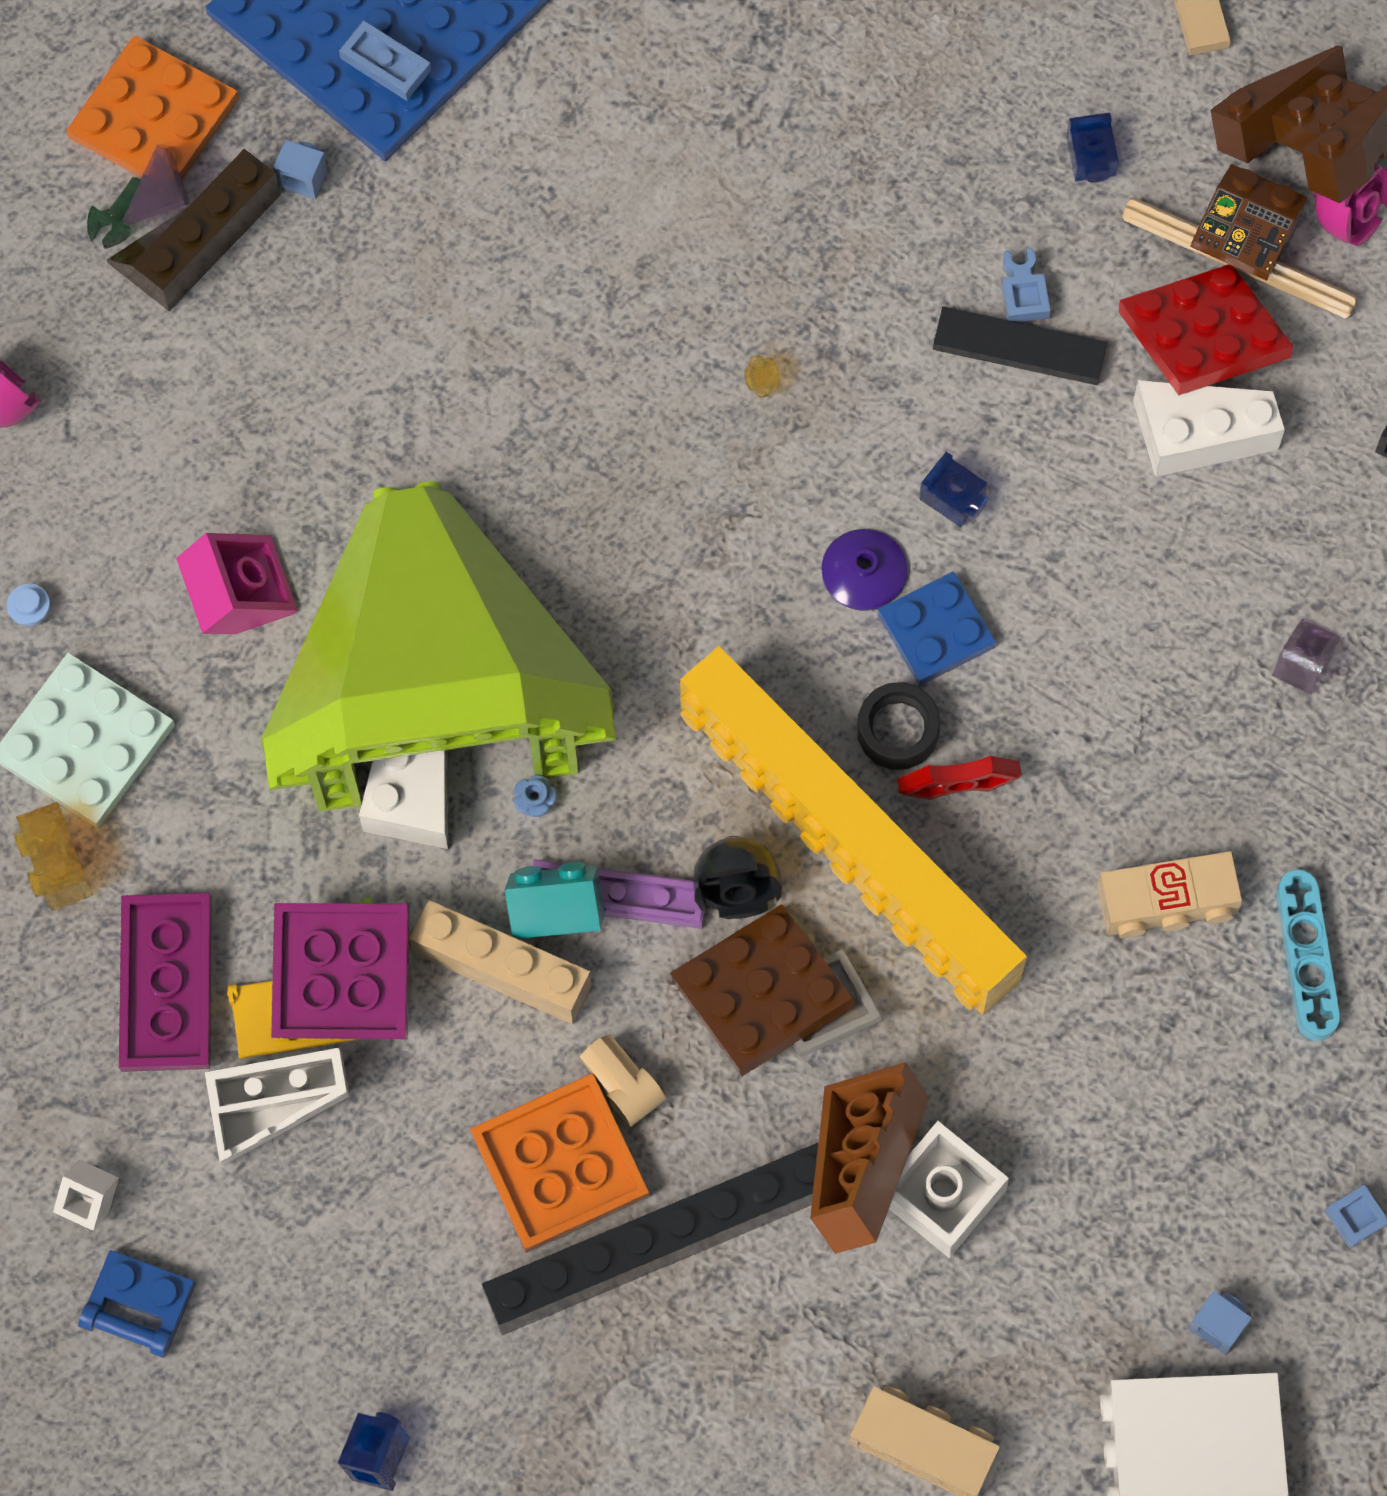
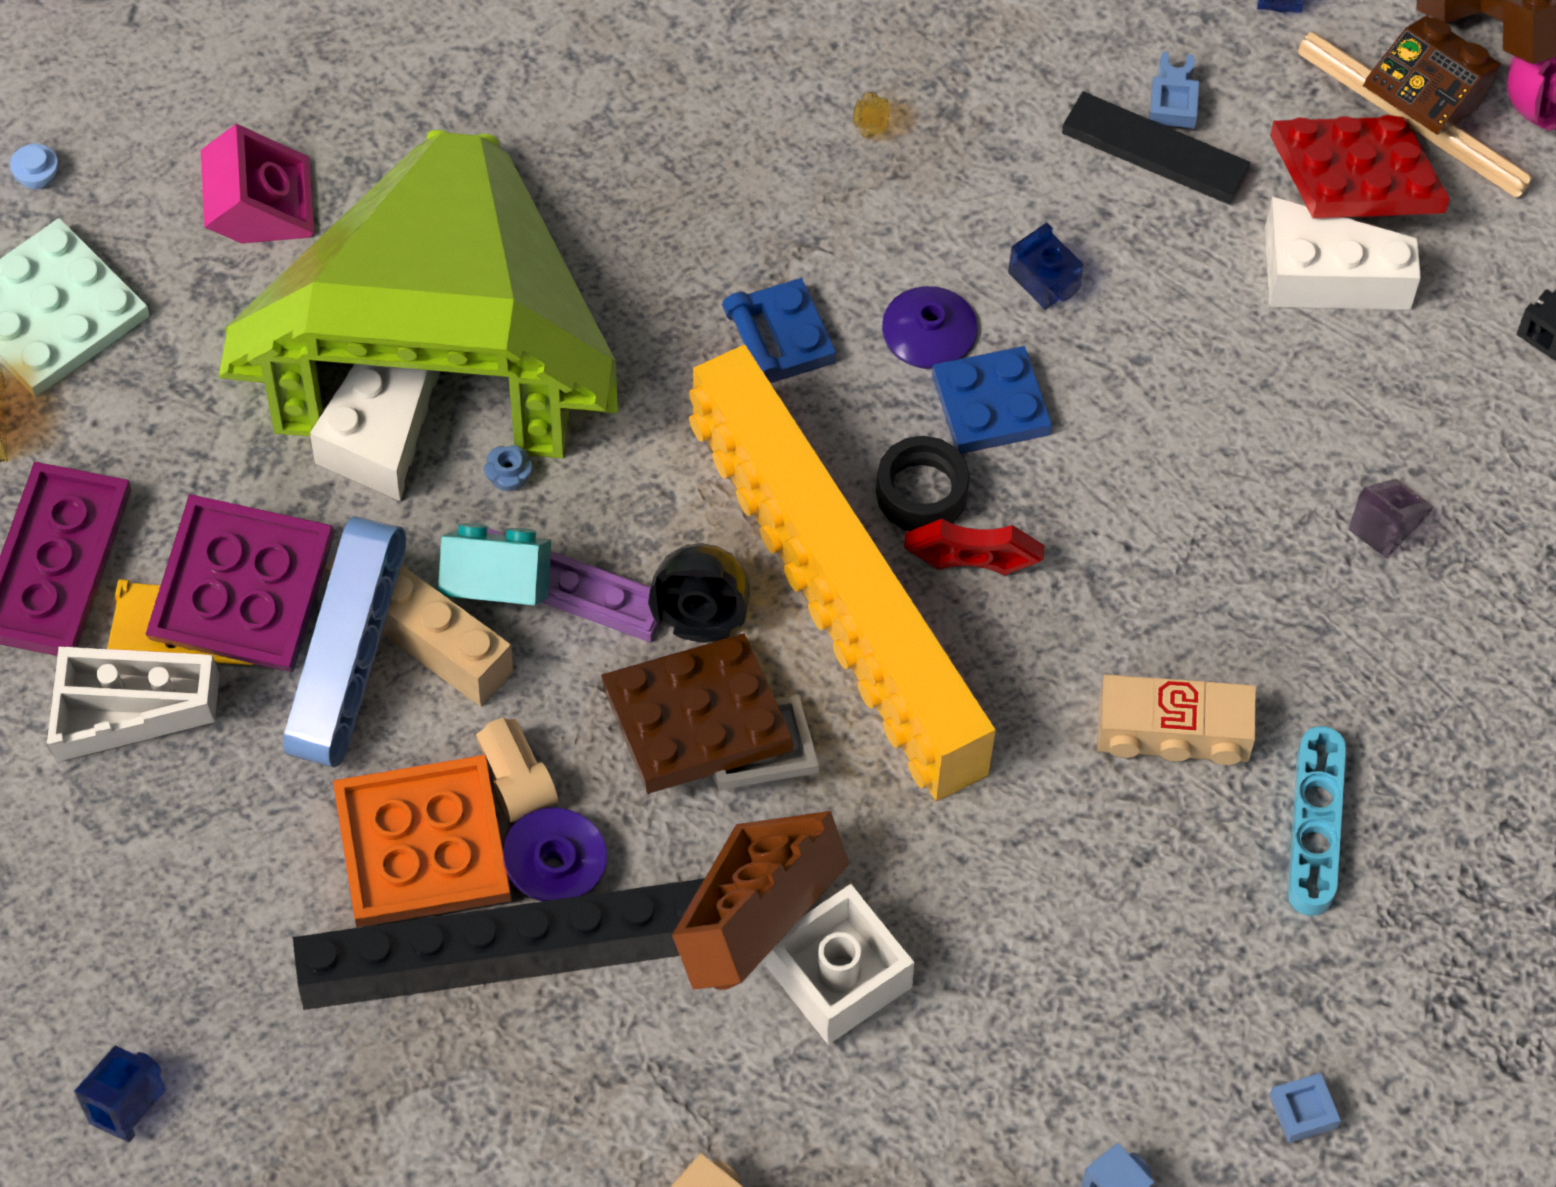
camera: 10 degrees right, 10 degrees down
(447, 1004) = (344, 641): none -> beam
(682, 1129) = (560, 836): none -> dark purple dish
(745, 598) = (792, 324): none -> blue plate

